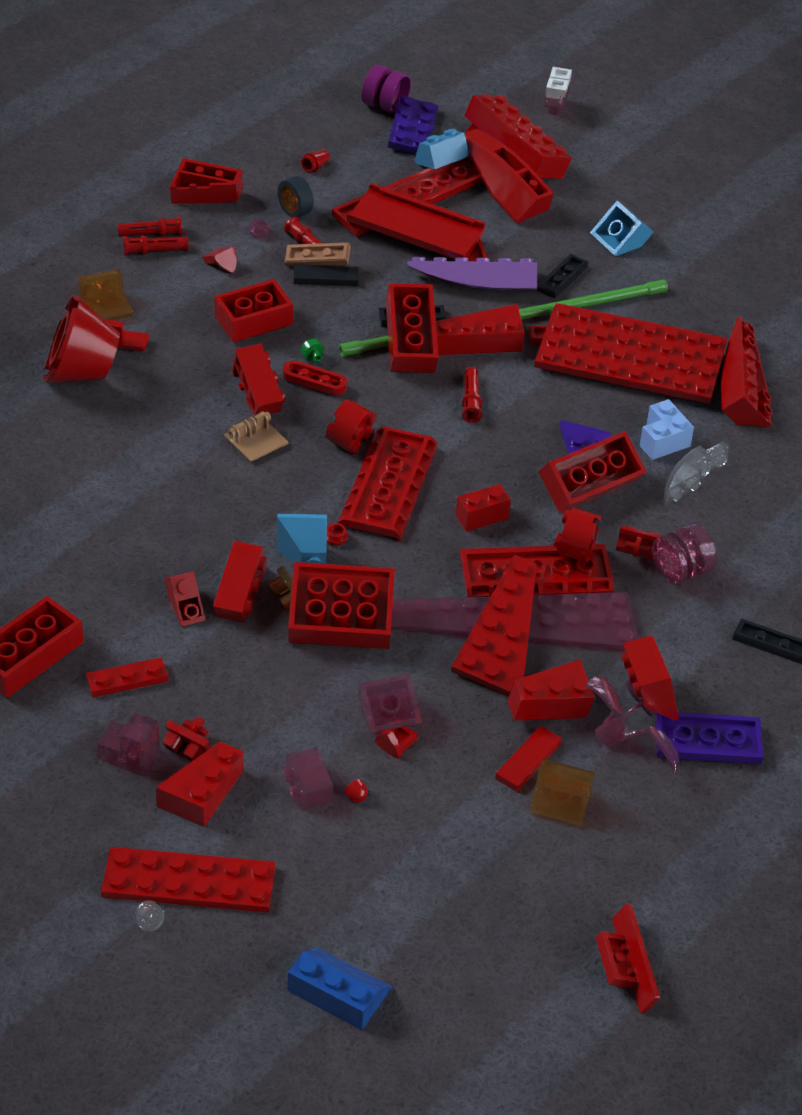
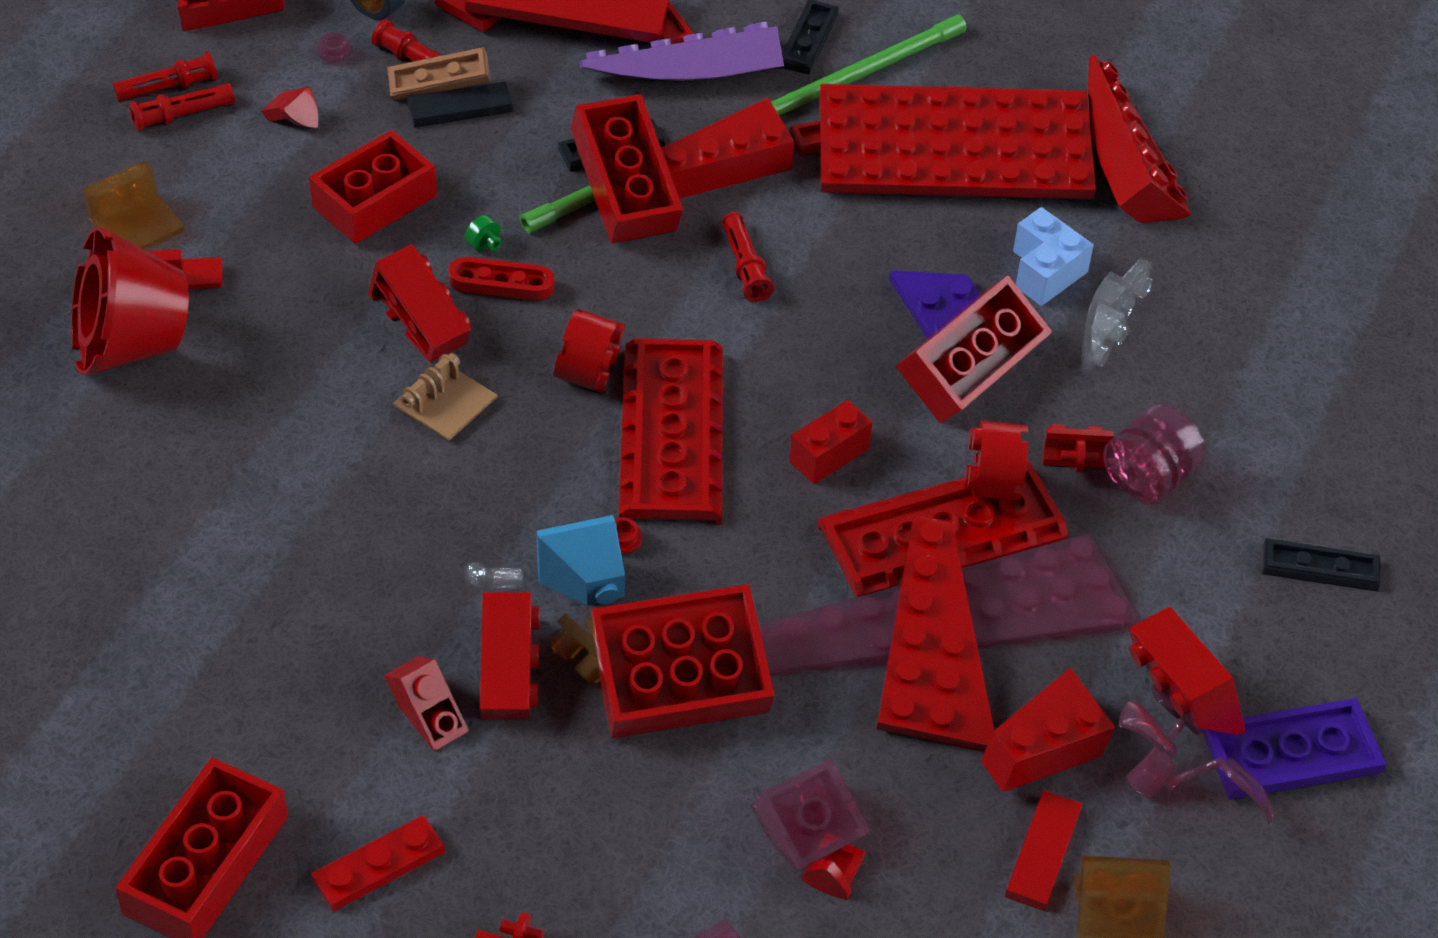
camera: 15 degrees left, 5 degrees up
(242, 536) = (482, 578): none -> clear arm

